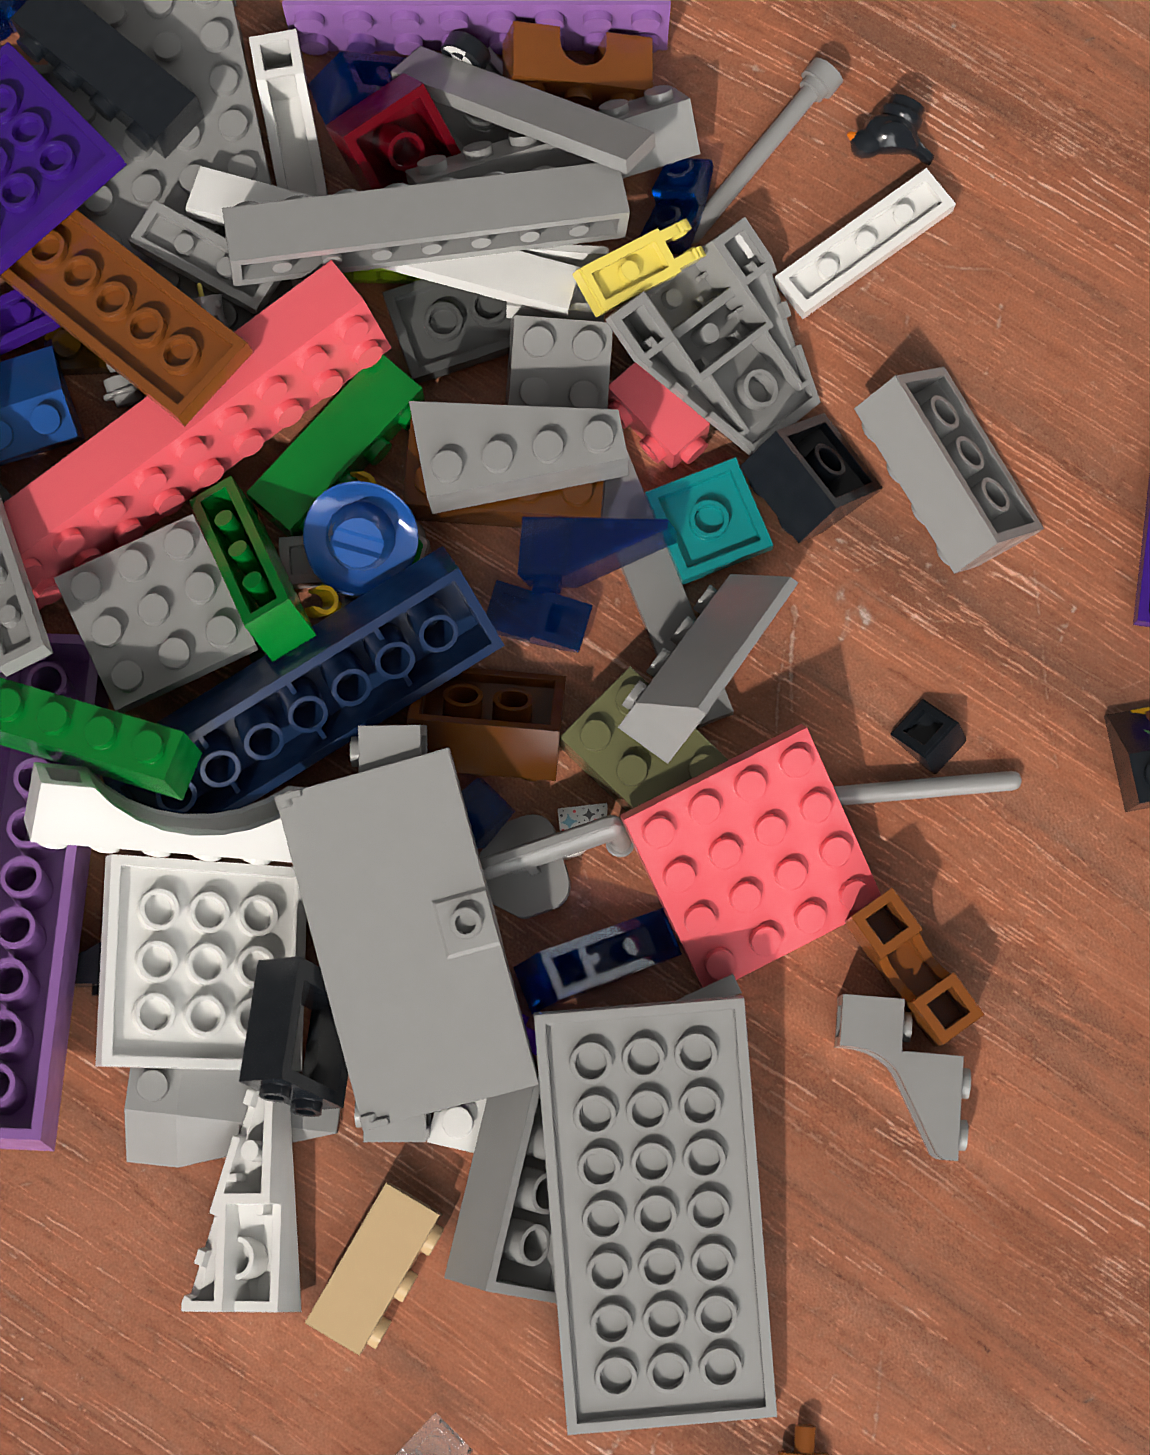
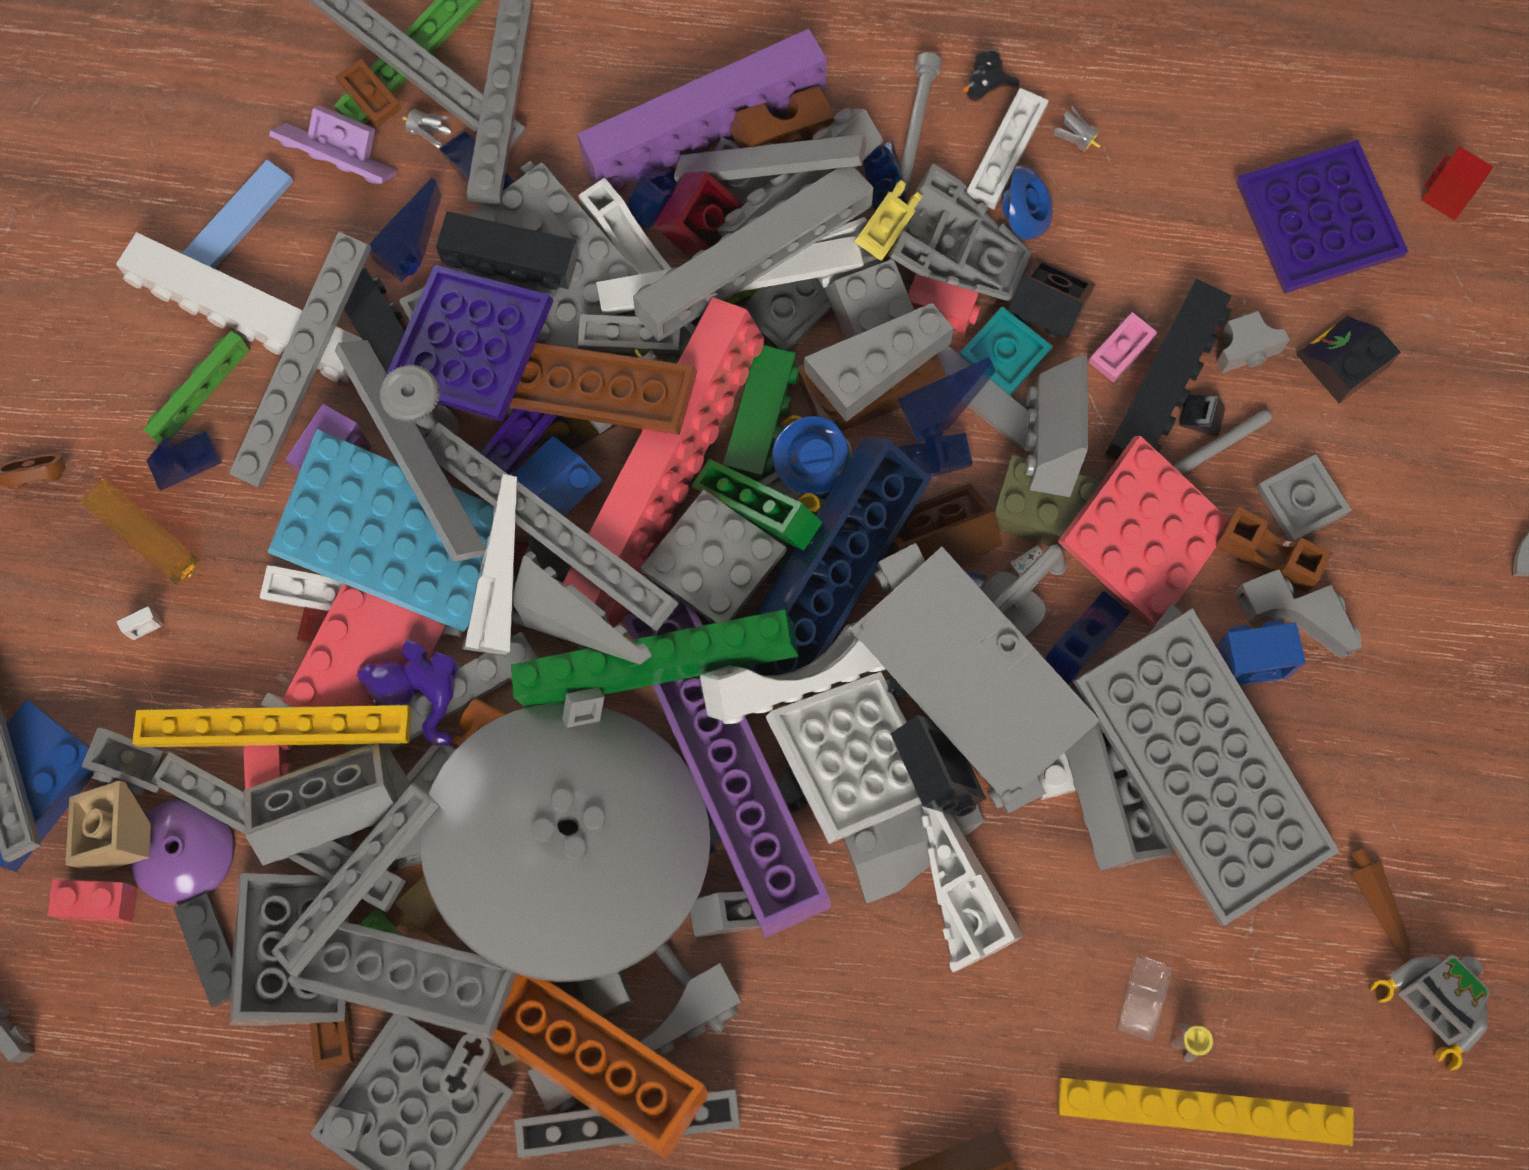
camera: 25 degrees left, 5 degrees down
(122, 392) = (610, 441): light grey plate -> none
(376, 1270) = (1055, 887): tan brick -> none
(466, 49) = (712, 142): black tile -> none
(812, 1100) = (1262, 652): none -> blue brick
(847, 333) = (1028, 204): none -> blue hat
(869, 592) = (1122, 347): none -> bright pink plate
(916, 655) = (1173, 367): none -> black brick
(947, 468) = (1128, 255): light grey slope -> none
(983, 275) = (1084, 133): none -> flat silver piece
(998, 919) = (1303, 498): none -> light grey plate
(1044, 670) = (1249, 342): none -> light grey brick

